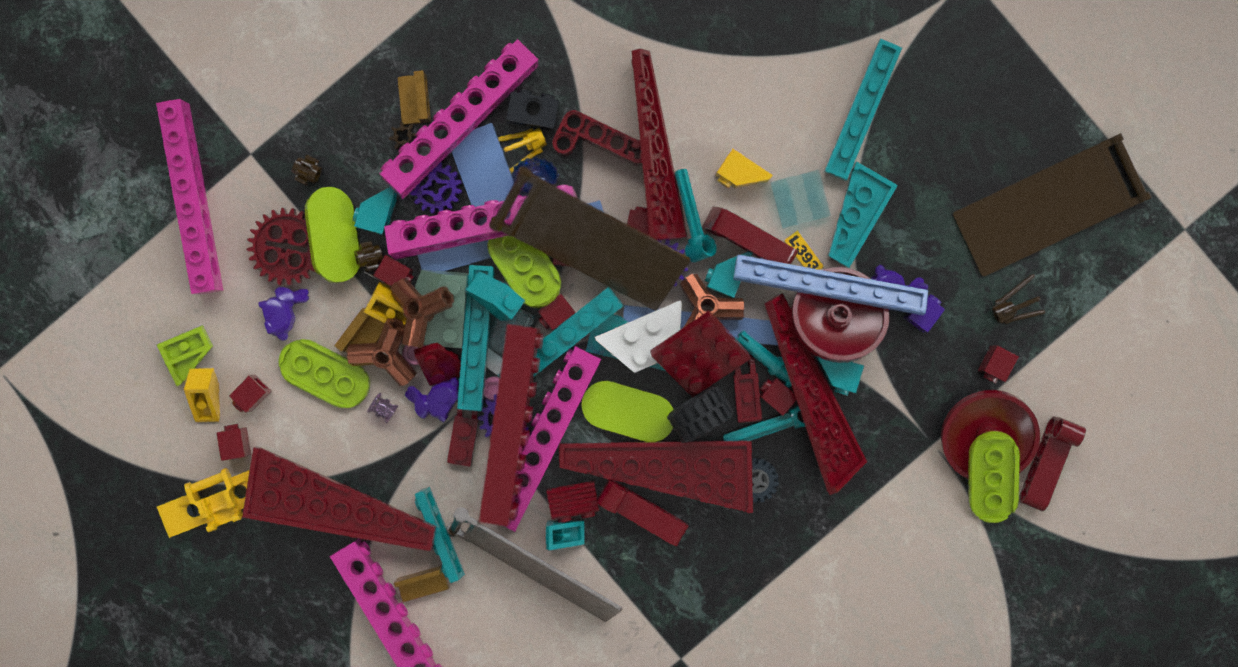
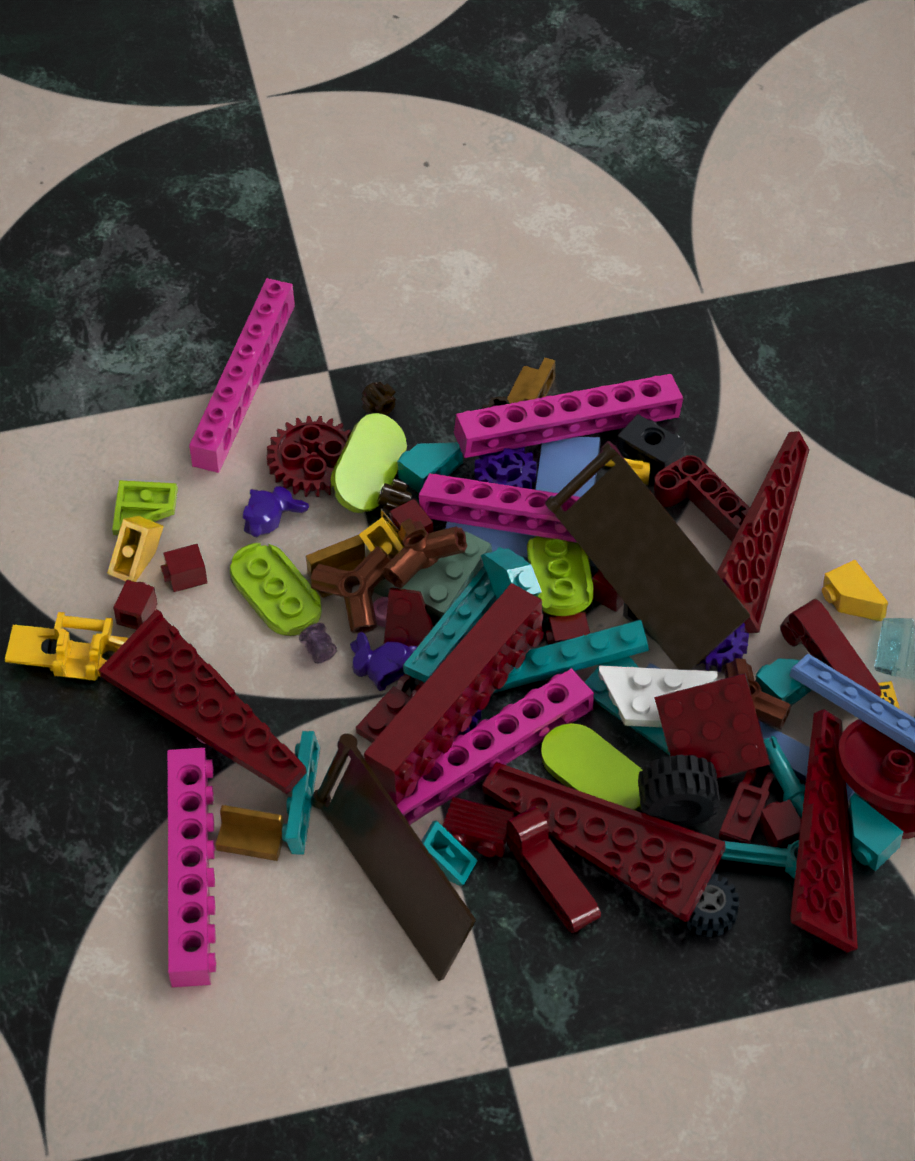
camera: 30 degrees right, 35 degrees down
(699, 245) = (770, 636): teal axle -> none

